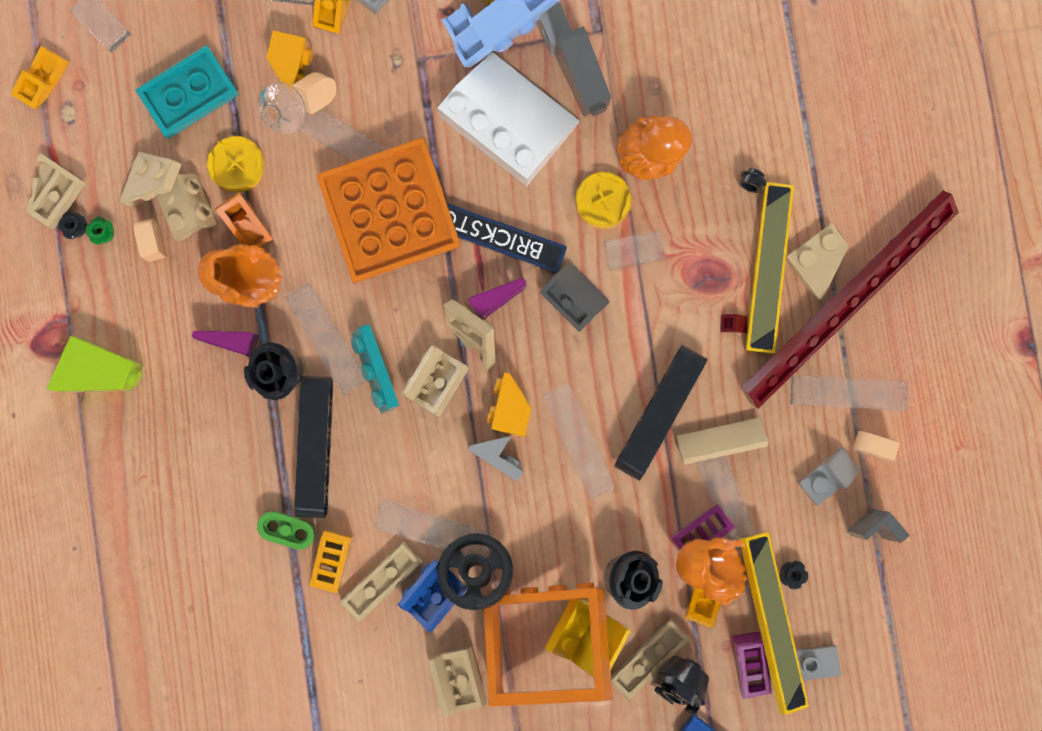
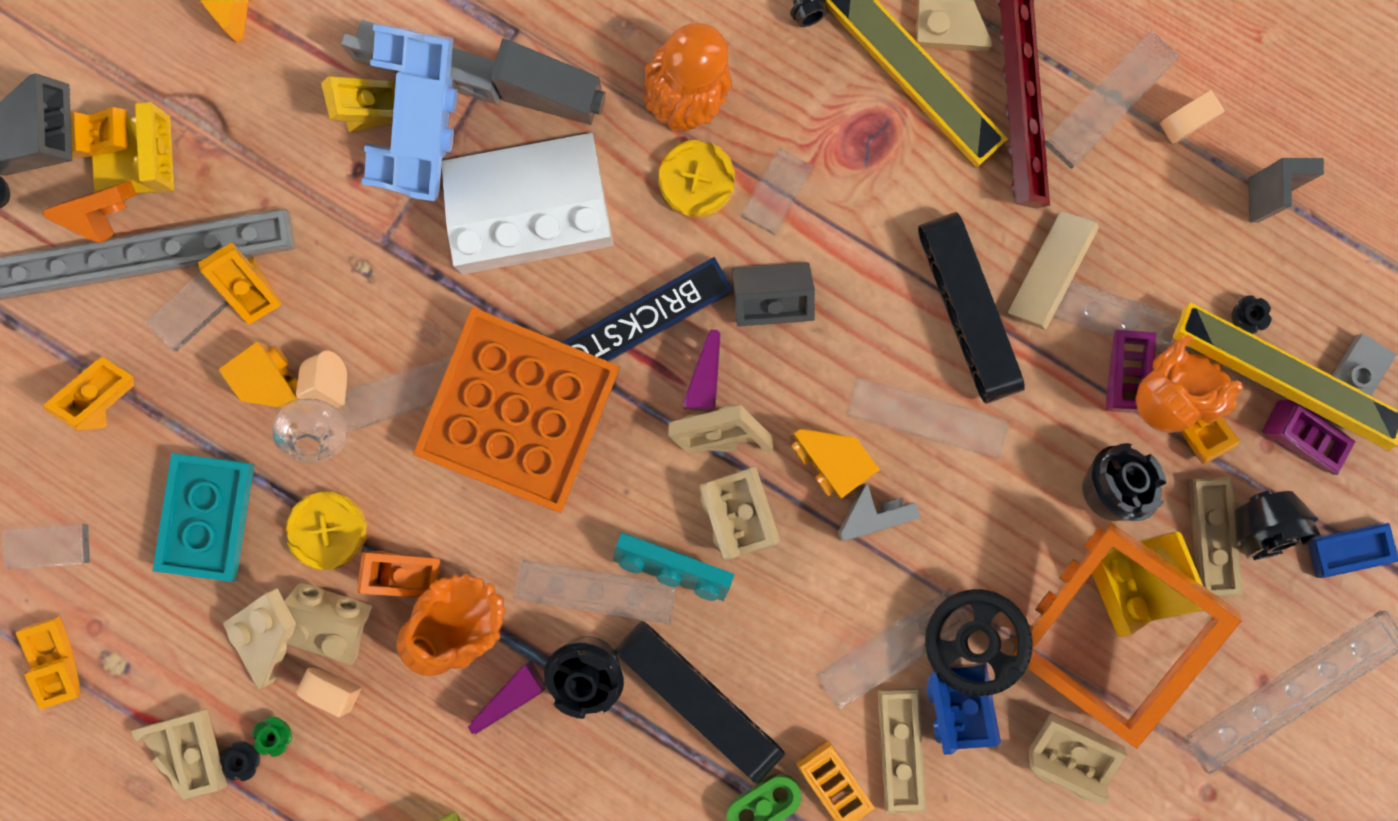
camera: 45 degrees left, 0 degrees up
(733, 323) = (939, 155): dark red piece -> none
(829, 476) = (1180, 192): light grey slope -> none

